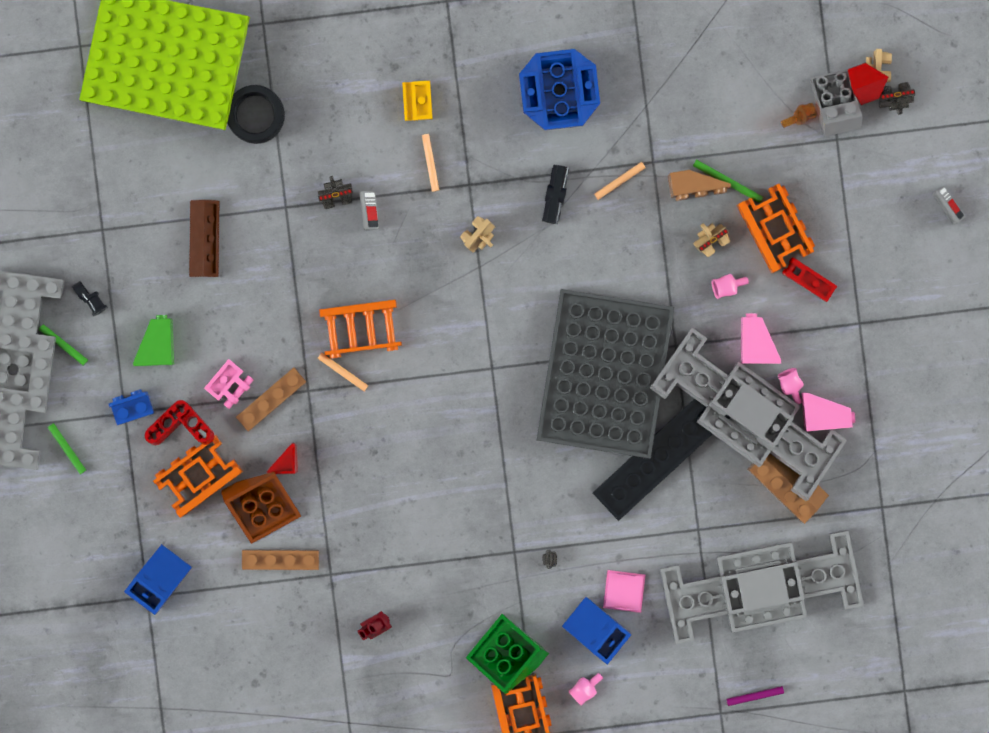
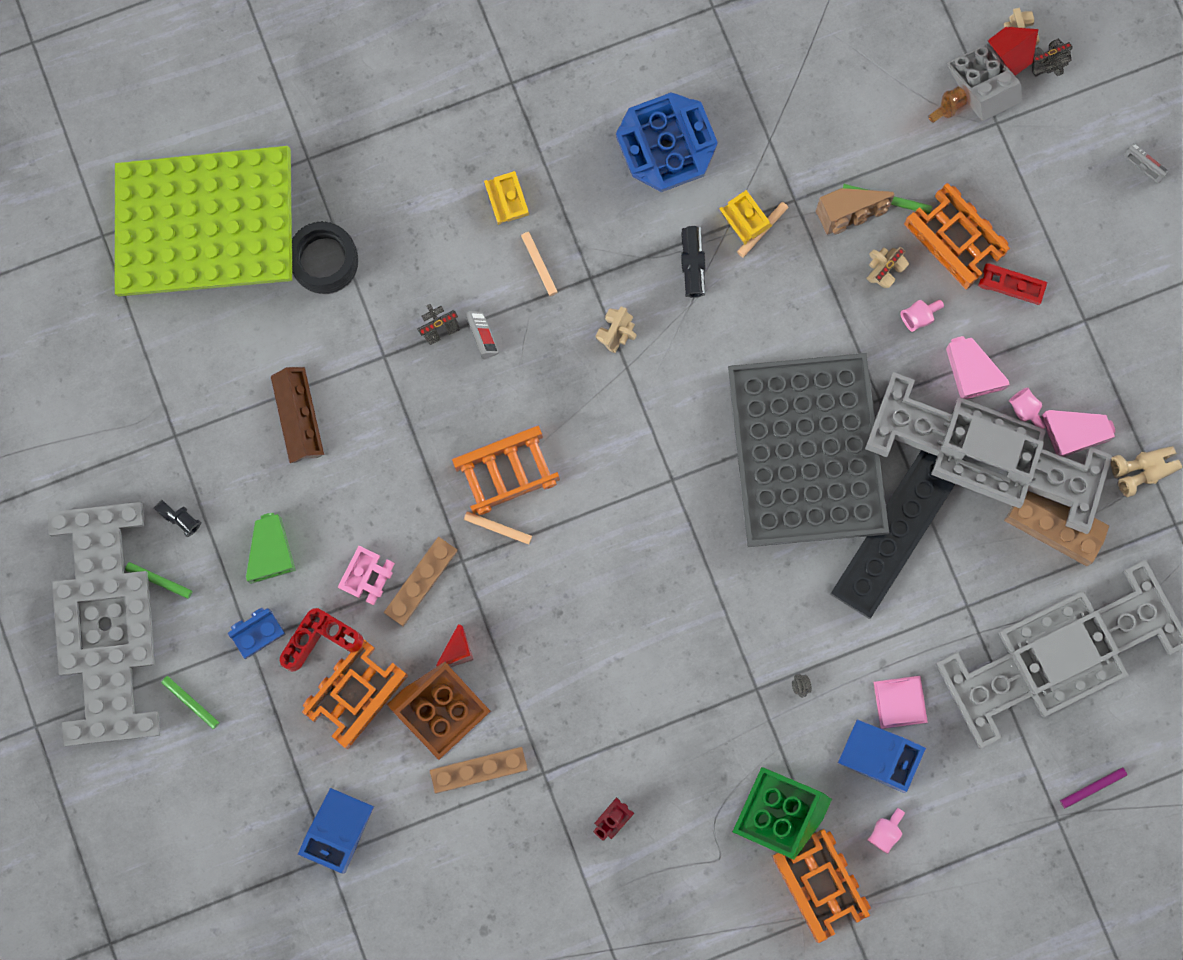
camera: 10 degrees left, 10 degrees down
(607, 168) = (745, 217): none -> yellow plate
(876, 461) = (1150, 462): none -> tan piece

